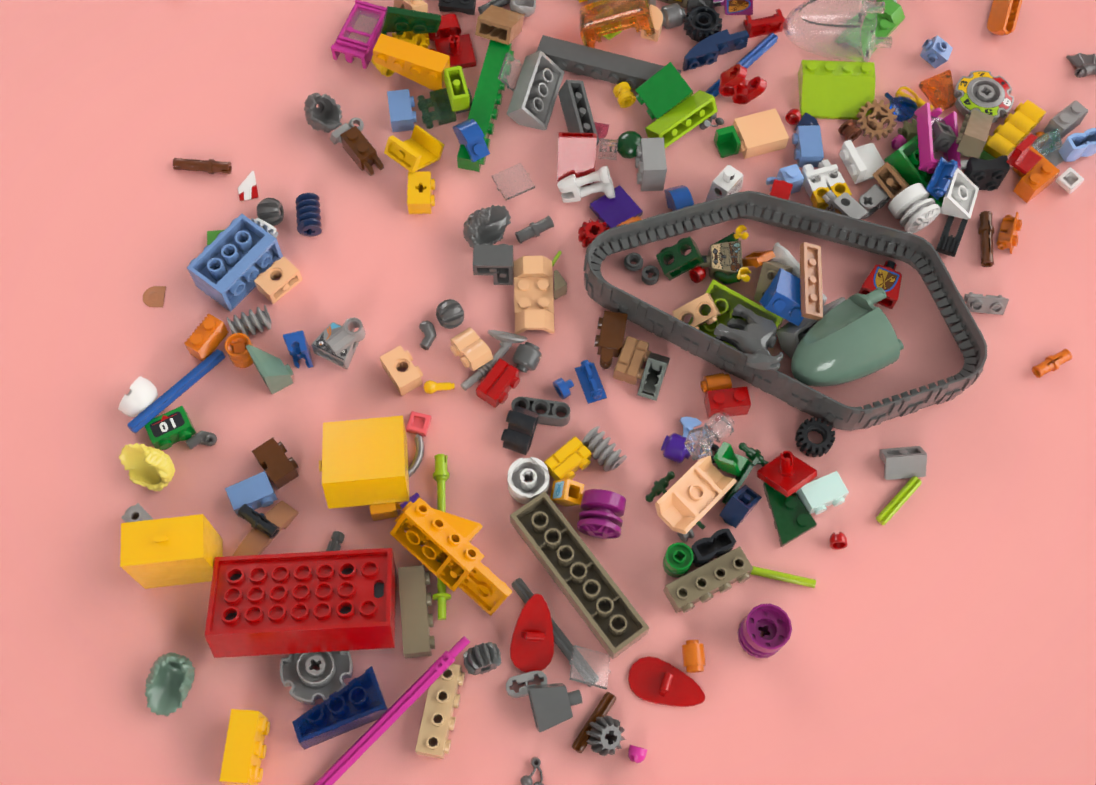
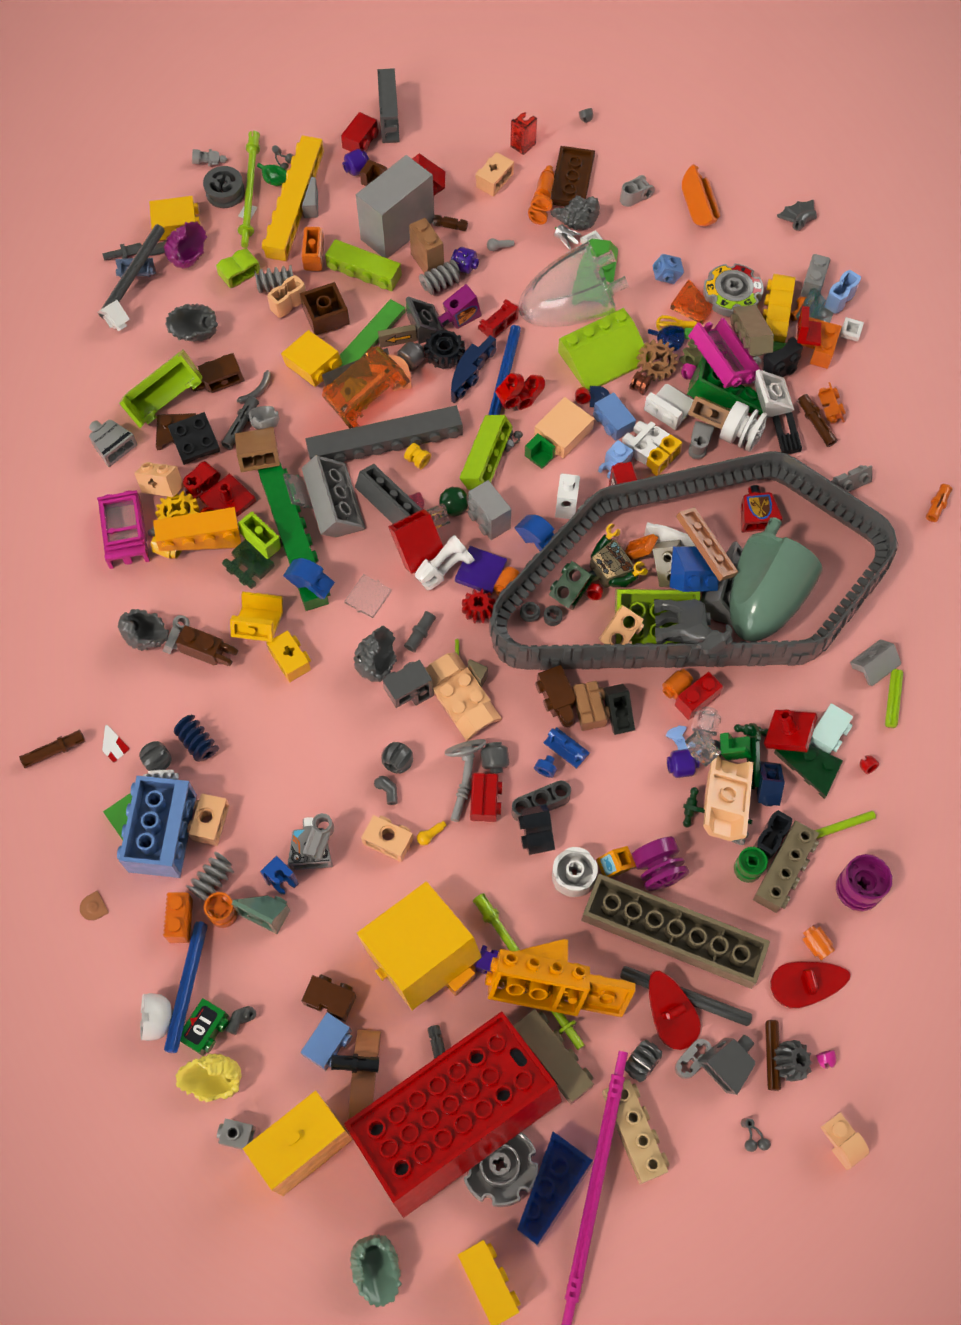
camera: 30 degrees left, 0 degrees up
(401, 111) = (215, 585): medium blue brick -> none
(405, 20) = (161, 496): dark green wing -> none
(418, 423) = (436, 878): coral tile -> none
(418, 455) = (453, 903): flat silver piece -> none
(471, 349) = (439, 780): light nougat brick -> none
(568, 460) = (595, 831): yellow brick -> none
(589, 667) = (739, 1008): clear piece -> none
(602, 451) = (620, 803): light grey piece -> none
(663, 91) = (455, 435): green brick -> none
(820, 427) = (794, 672): black tyre -> none
(844, 205) = (685, 458): light grey torso -> none
(939, 182) = (752, 393): blue hinge -> none
(943, 136) = (728, 346): dark grey bracket -> none

